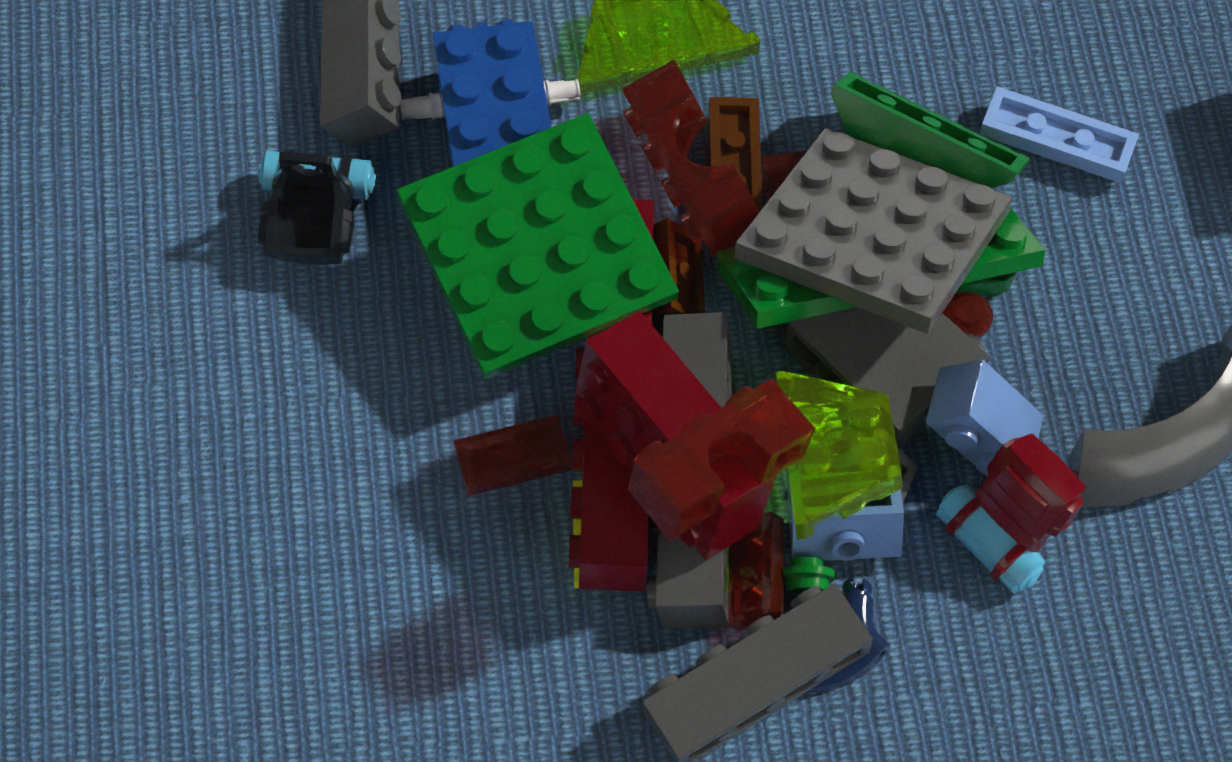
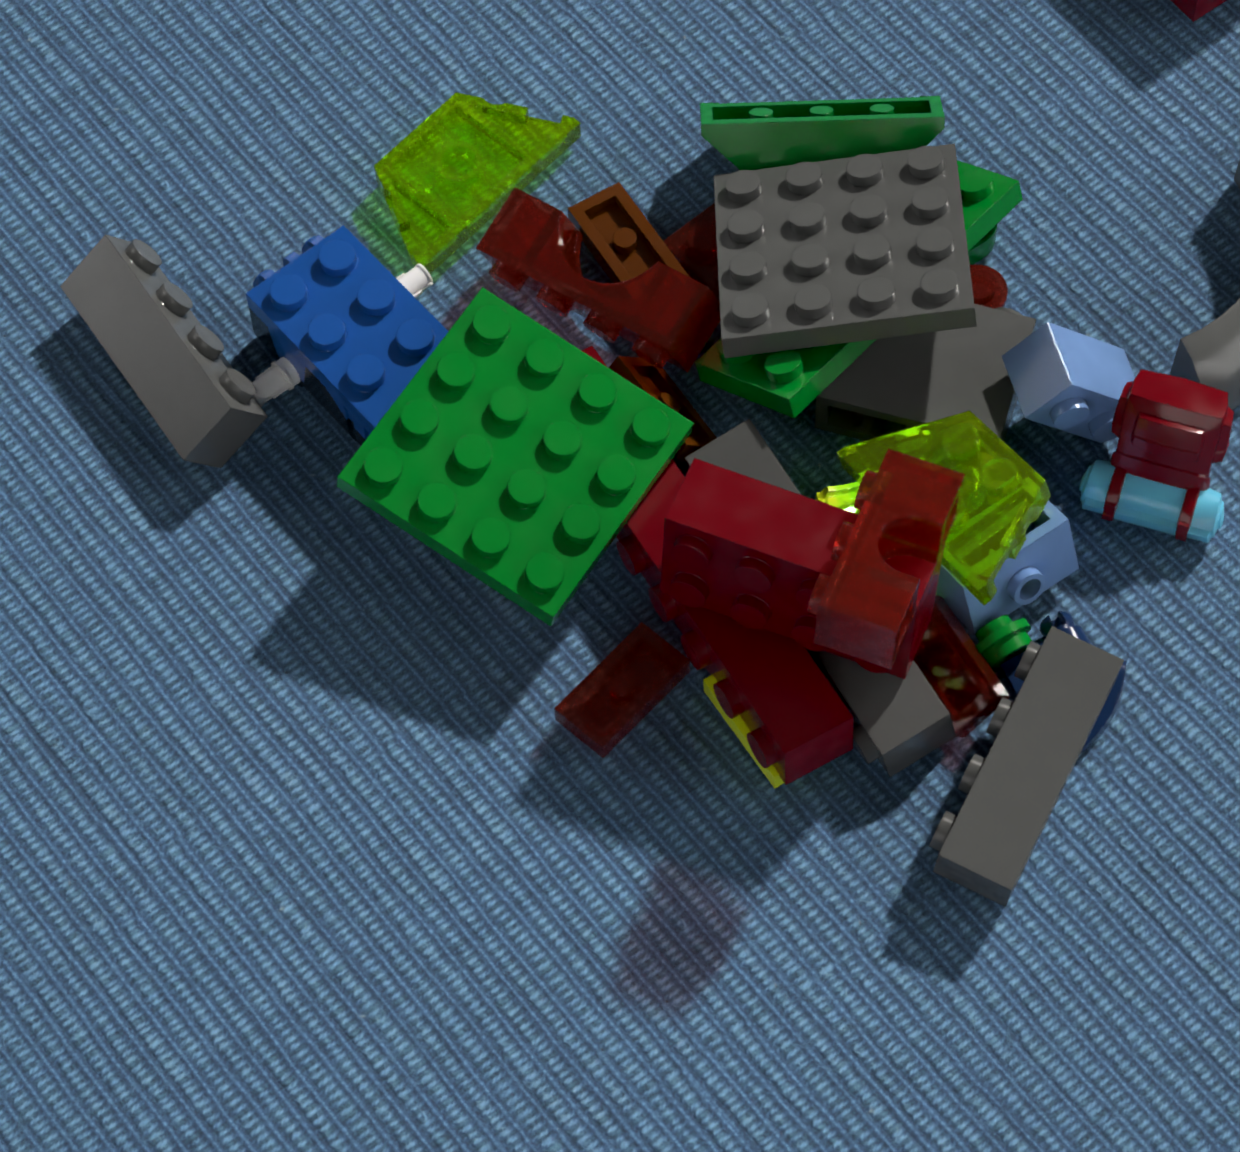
camera: 25 degrees left, 0 degrees up
(310, 205) = (230, 550): black piece -> none
(1058, 134) = (942, 57): light blue plate -> none

